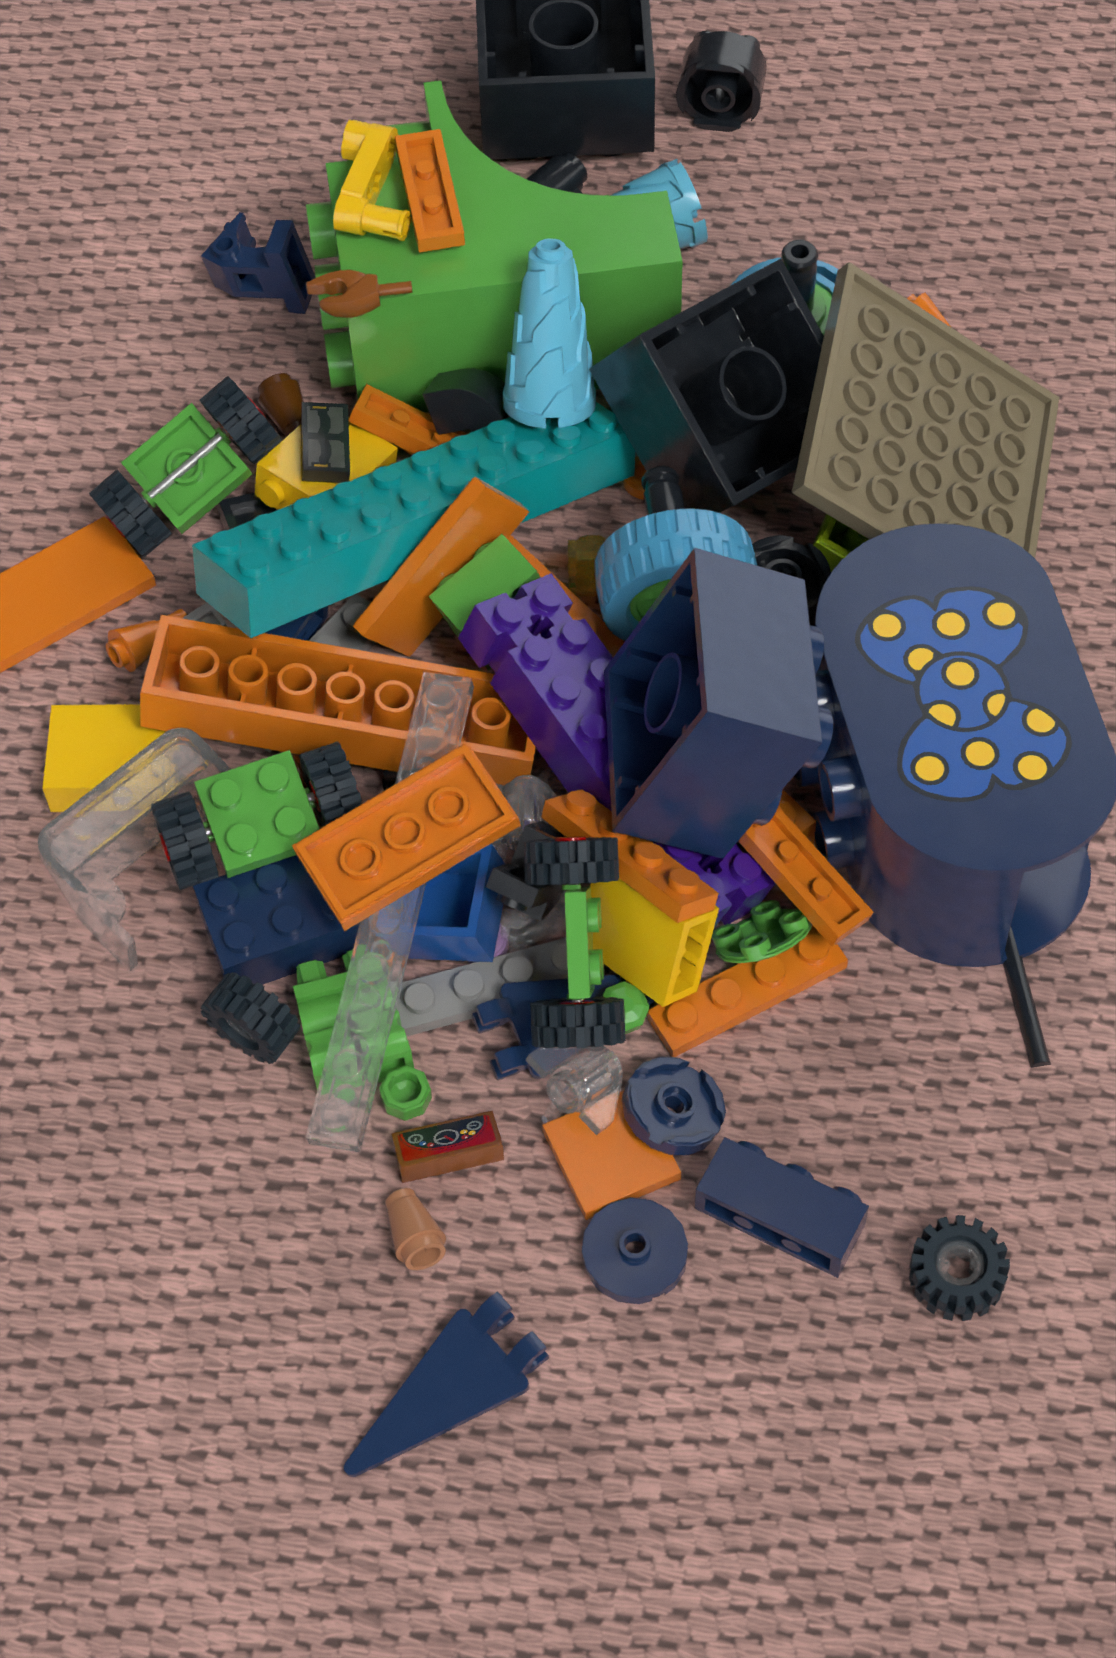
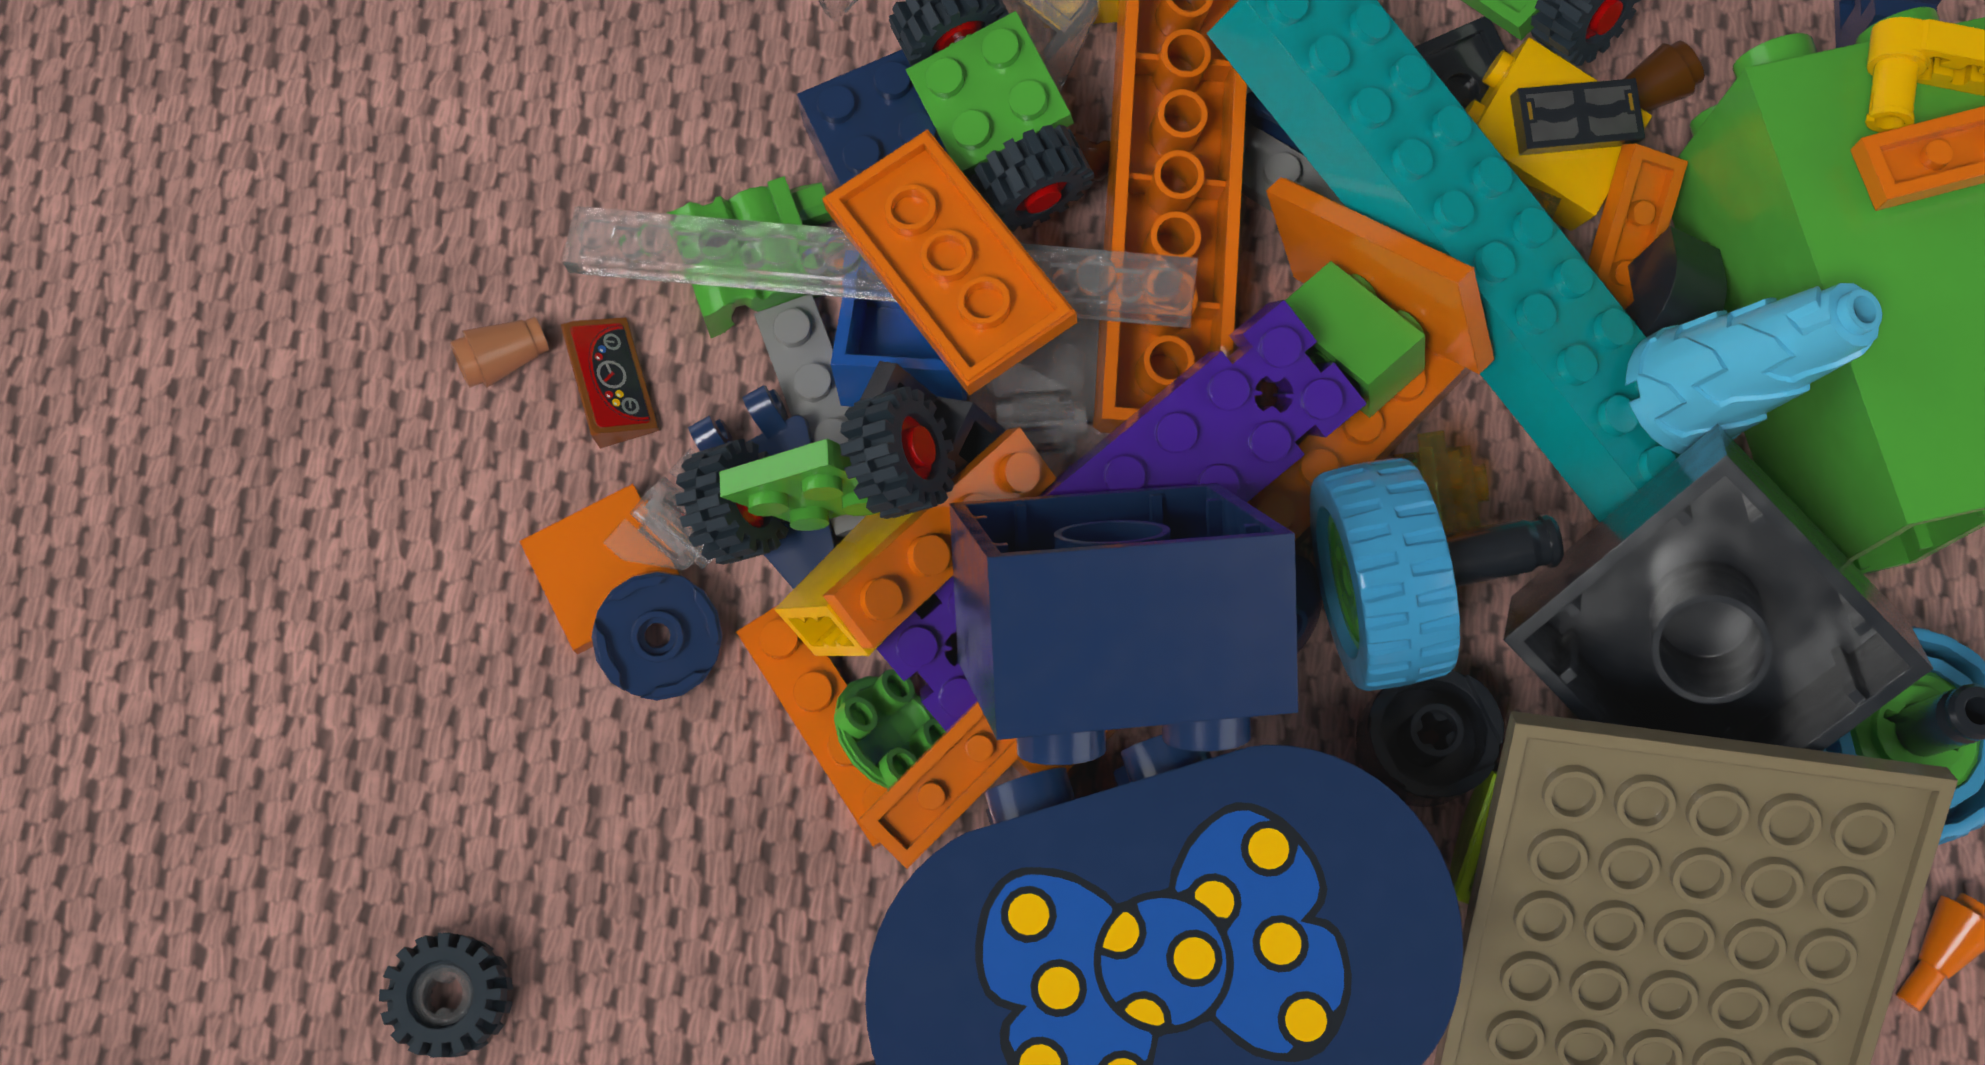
camera: 85 degrees right, 15 degrees up
(250, 1017) = (744, 135): black bush -> none
(359, 292) = (1761, 80): dark orange hand -> none
(405, 1092) = (672, 326): bright green tile -> none
(451, 1385) = (316, 412): dark blue flag -> none
(628, 1275) = (496, 629): dark blue plate -> none
(635, 1004) = (785, 567): bright green tile -> none
(781, 1205) = (524, 772): dark blue brick -> none

